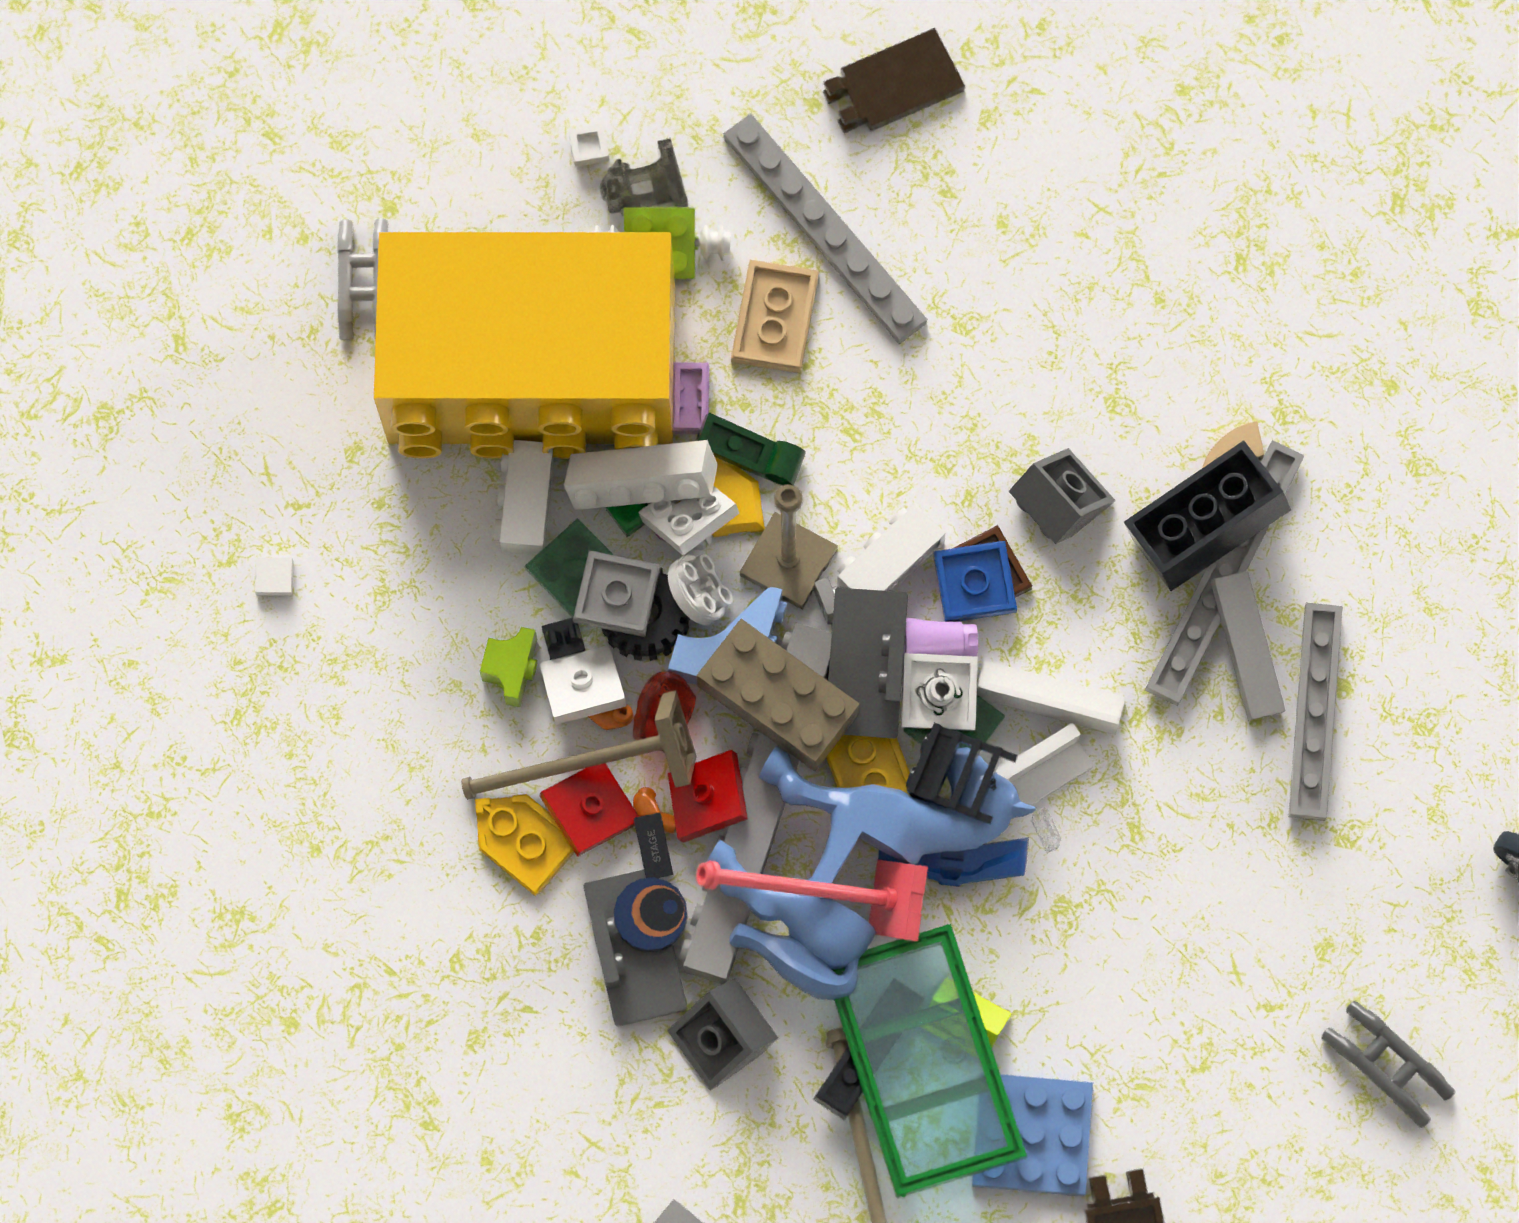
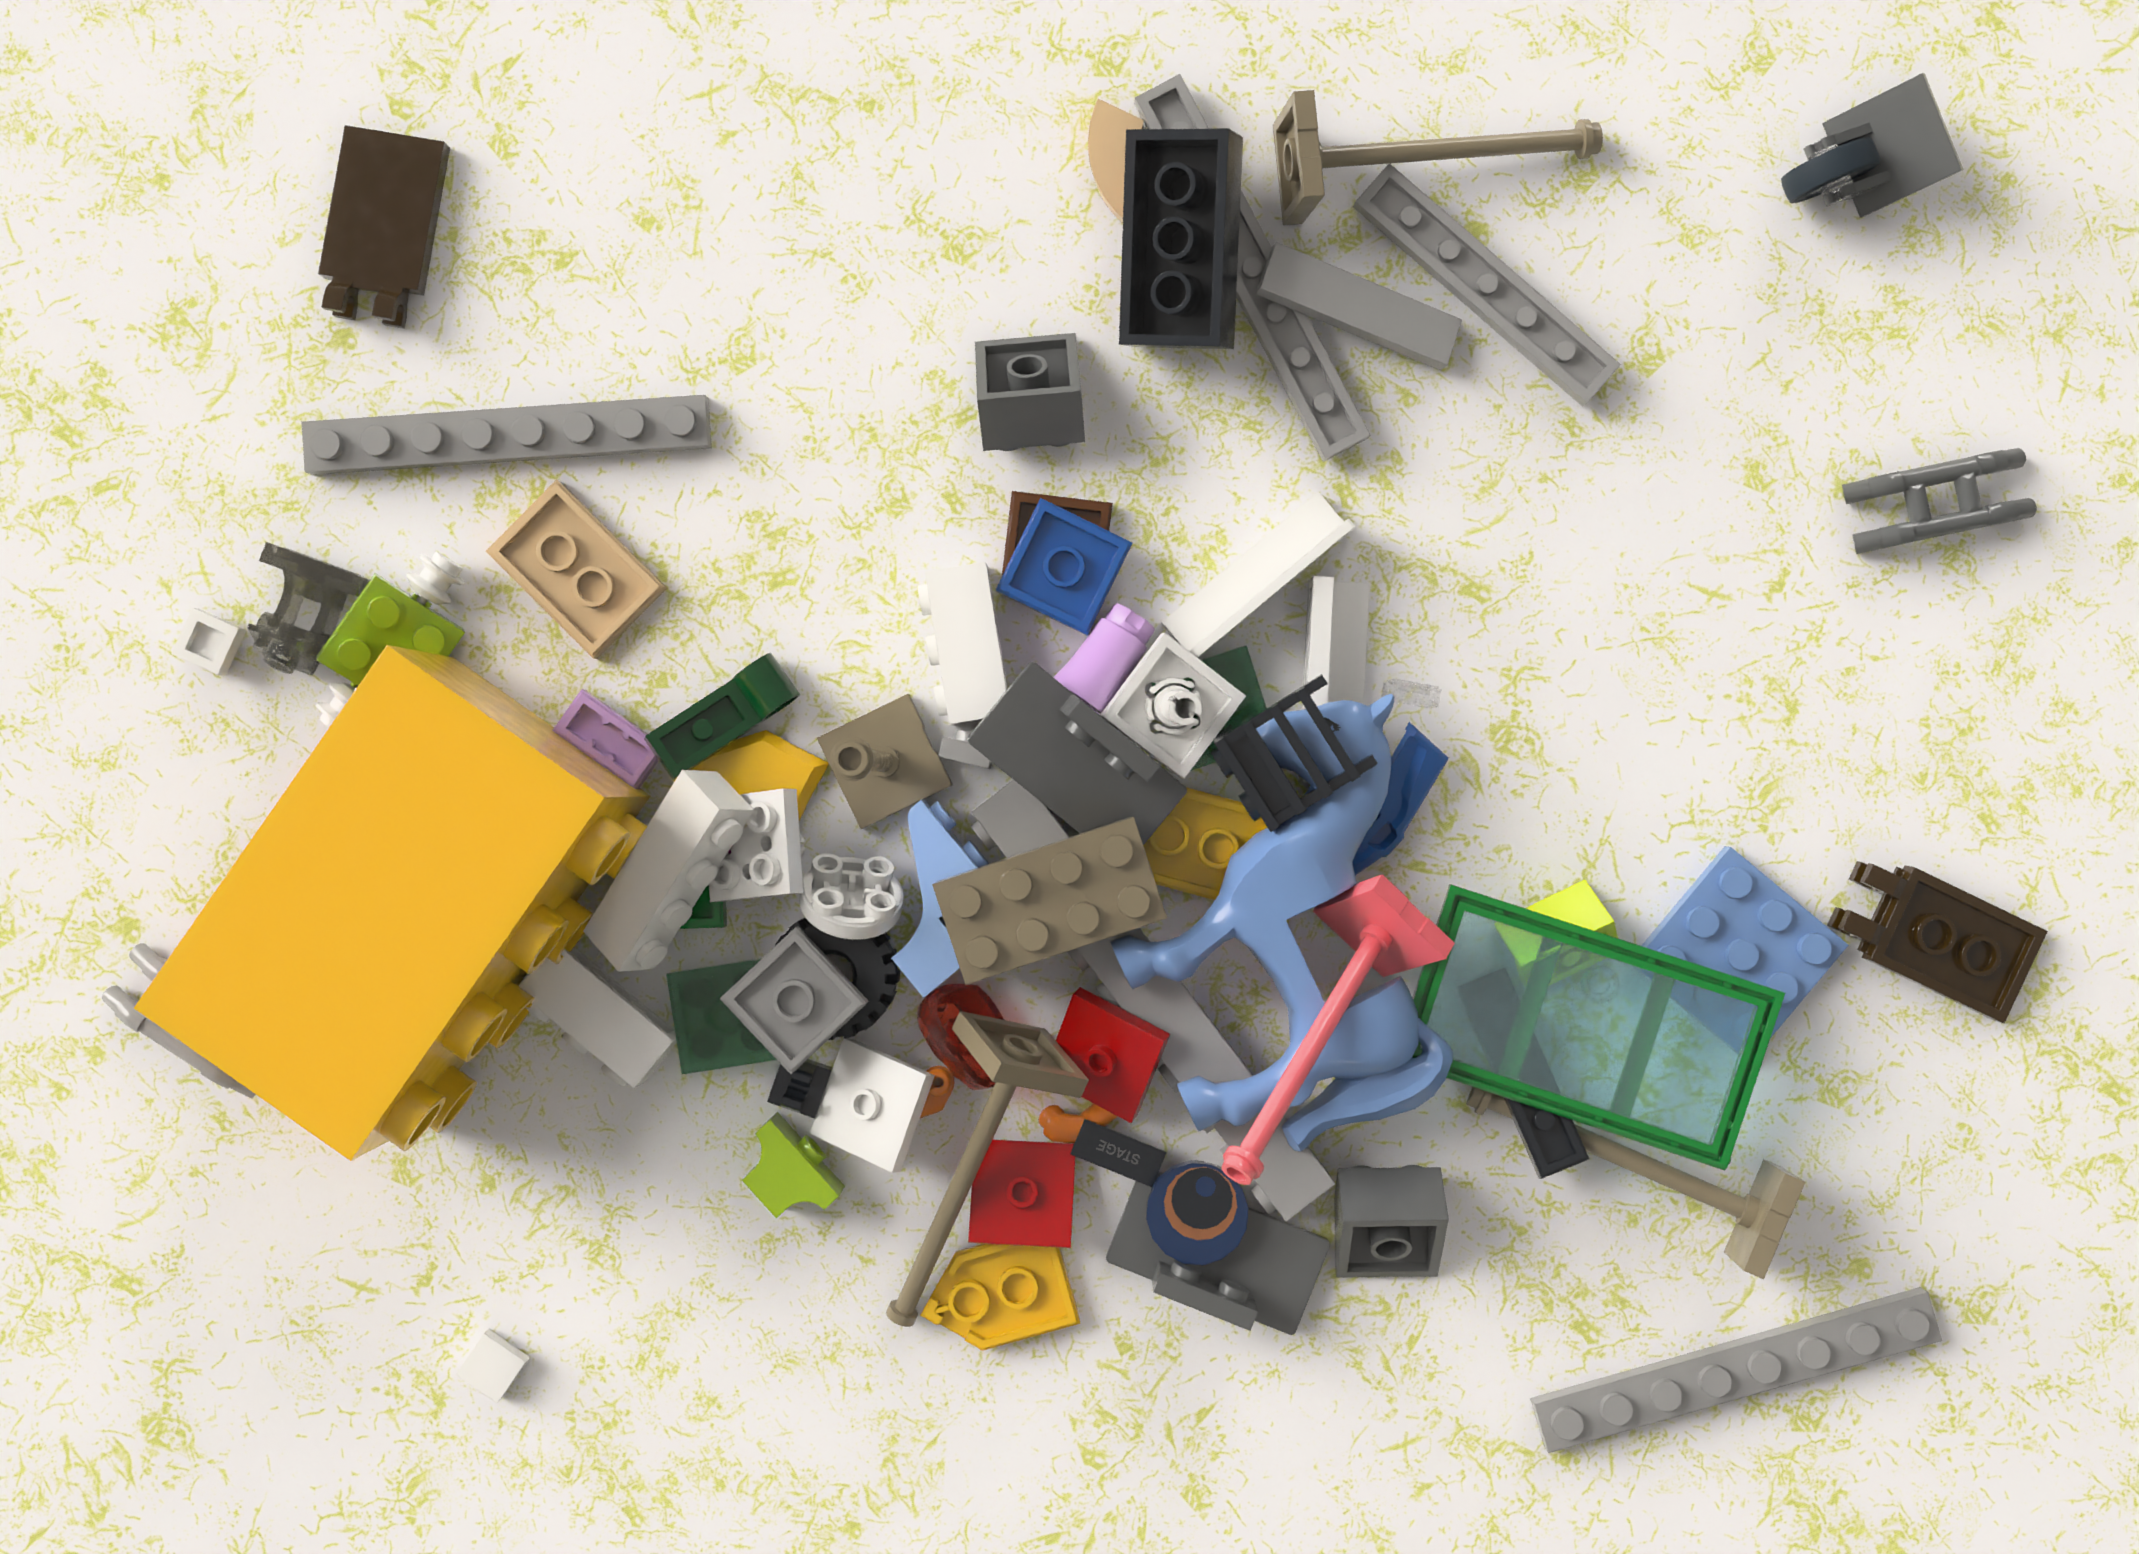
camera: 55 degrees left, 15 degrees up
(1309, 557) = (1303, 157): none -> dark tan tile

